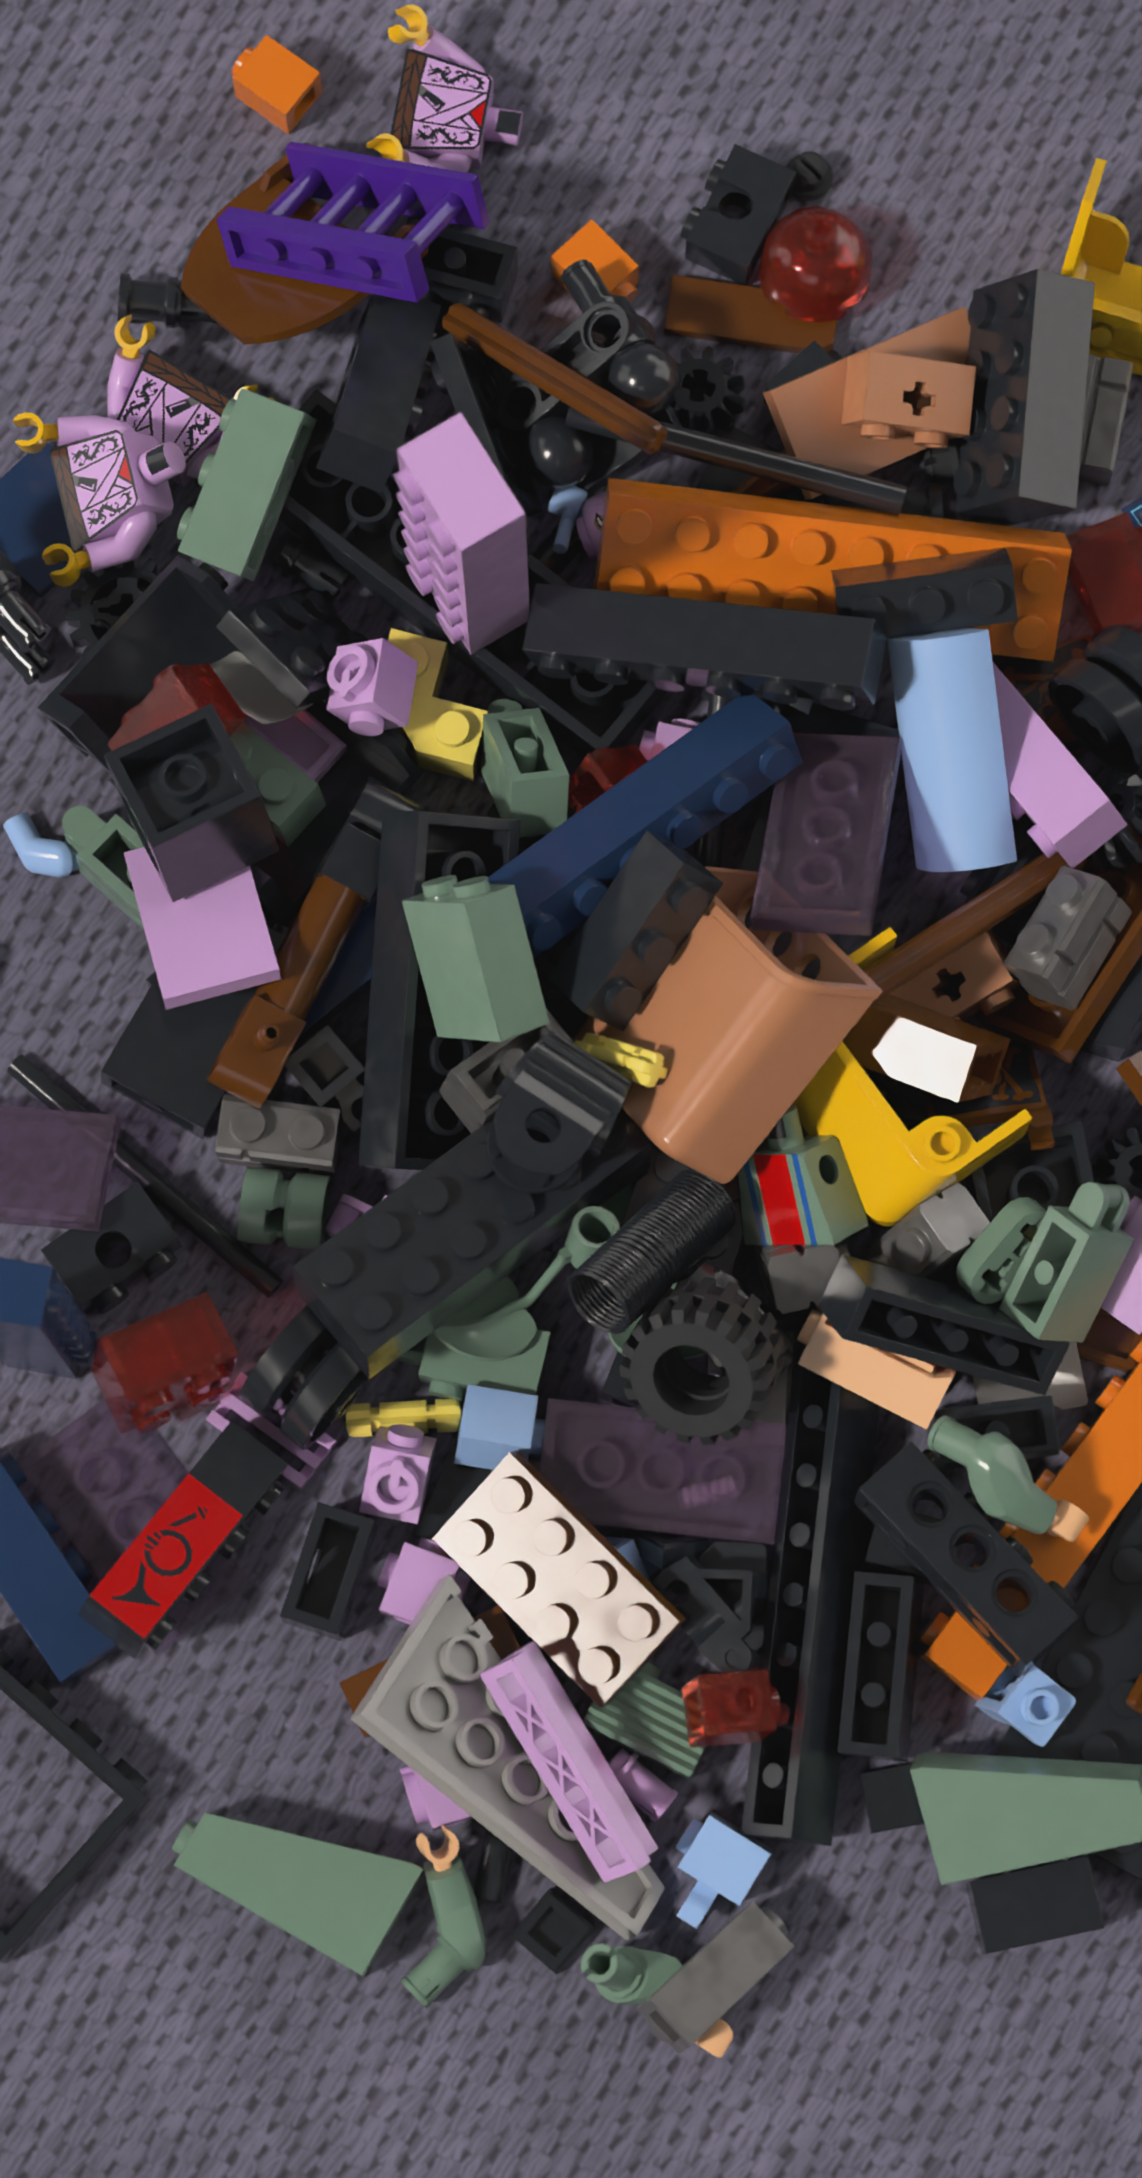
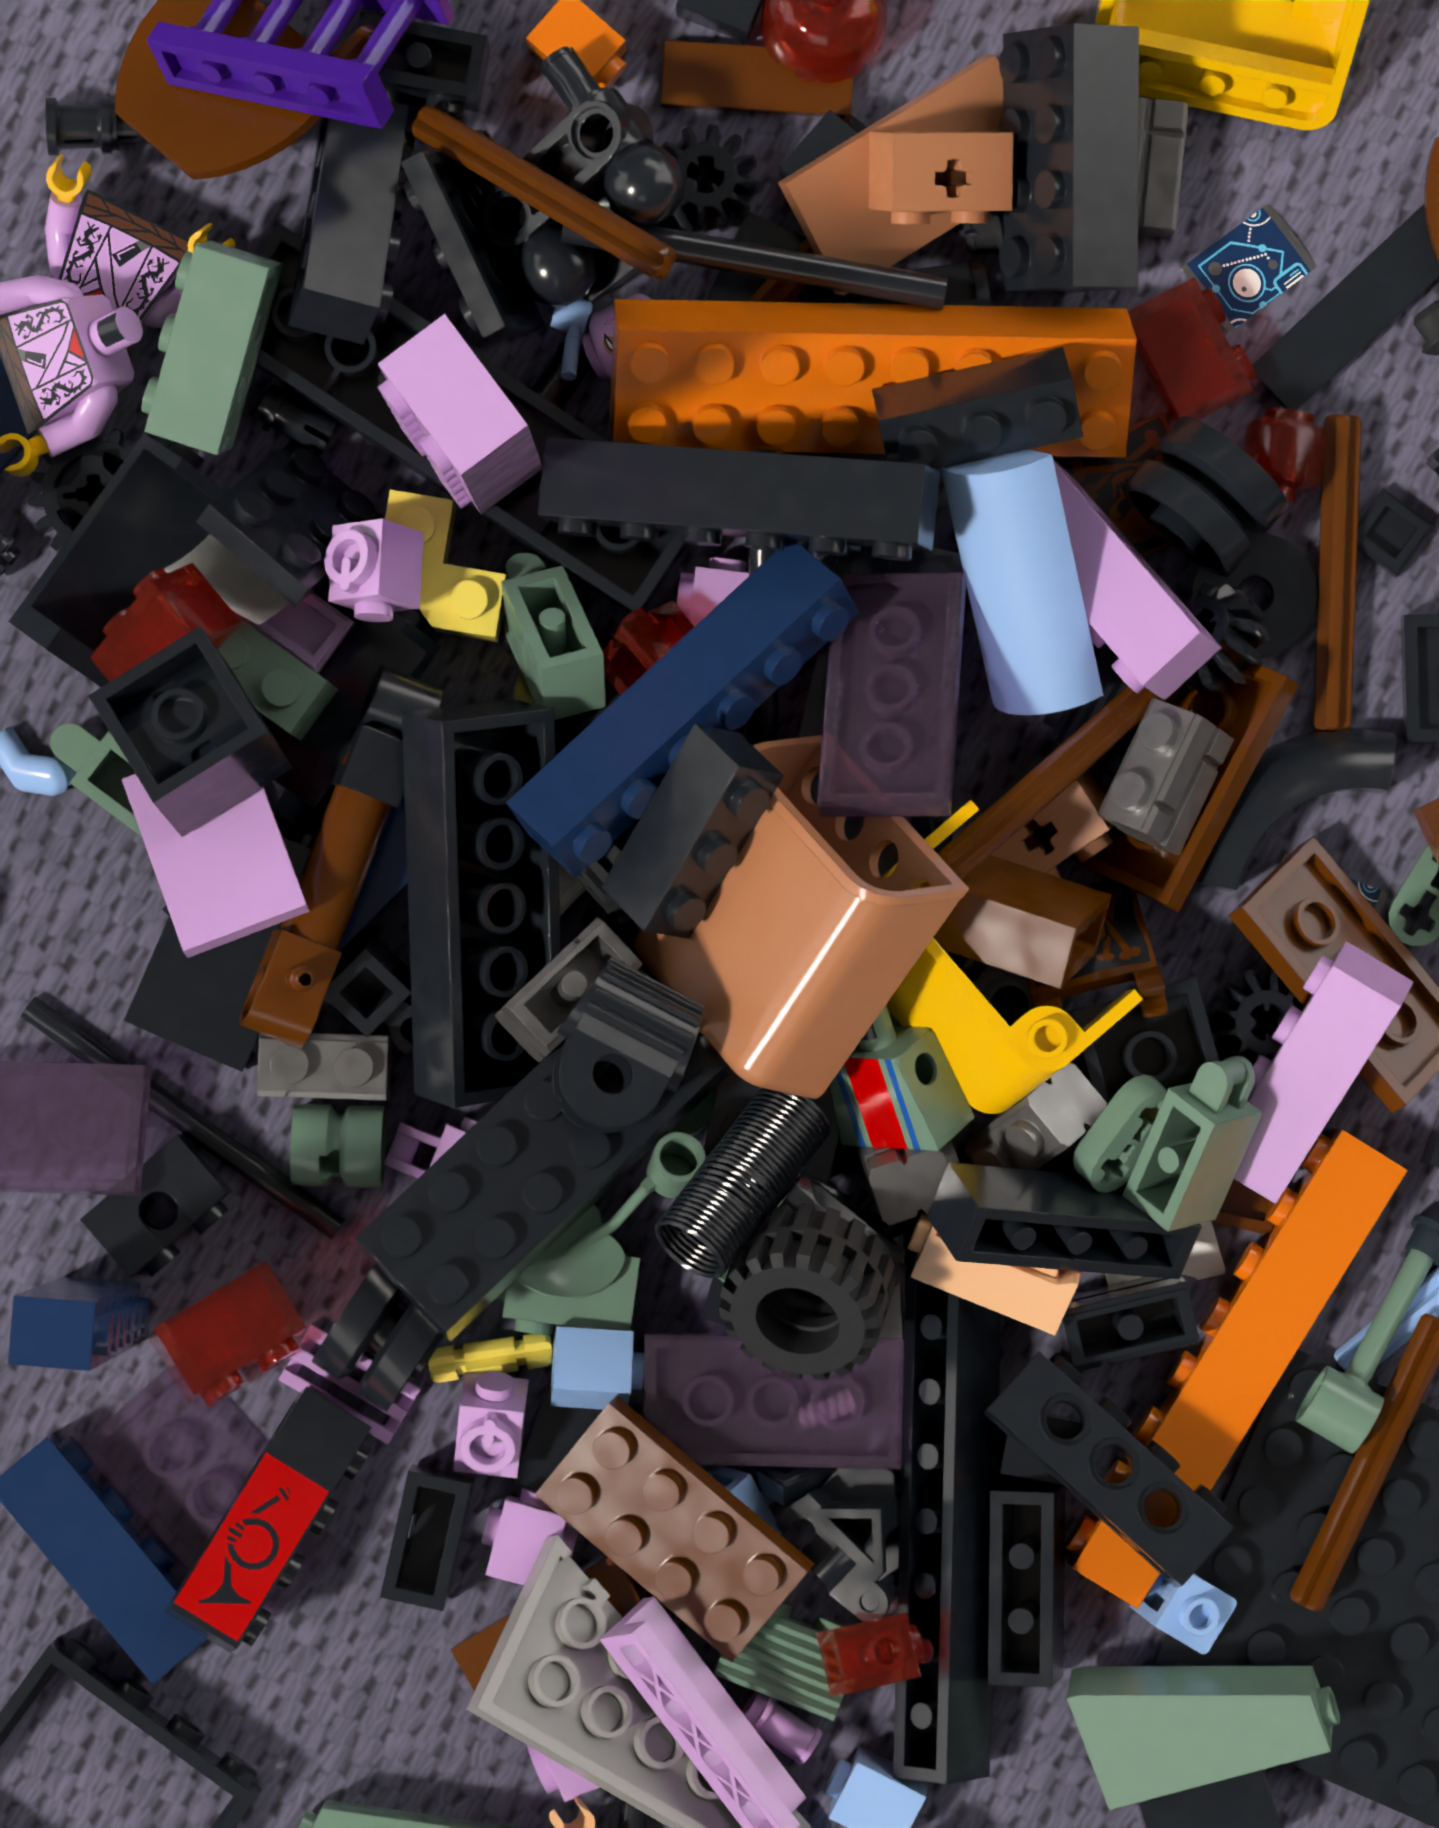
camera: 10 degrees left, 10 degrees up
(475, 959) = (520, 883): sand green brick -> none
(631, 1061) = (690, 977): light yellow axle -> none
(890, 1799) = (1047, 1717): black tile -> none
(1004, 1481) = (1141, 1386): sand green arm -> none

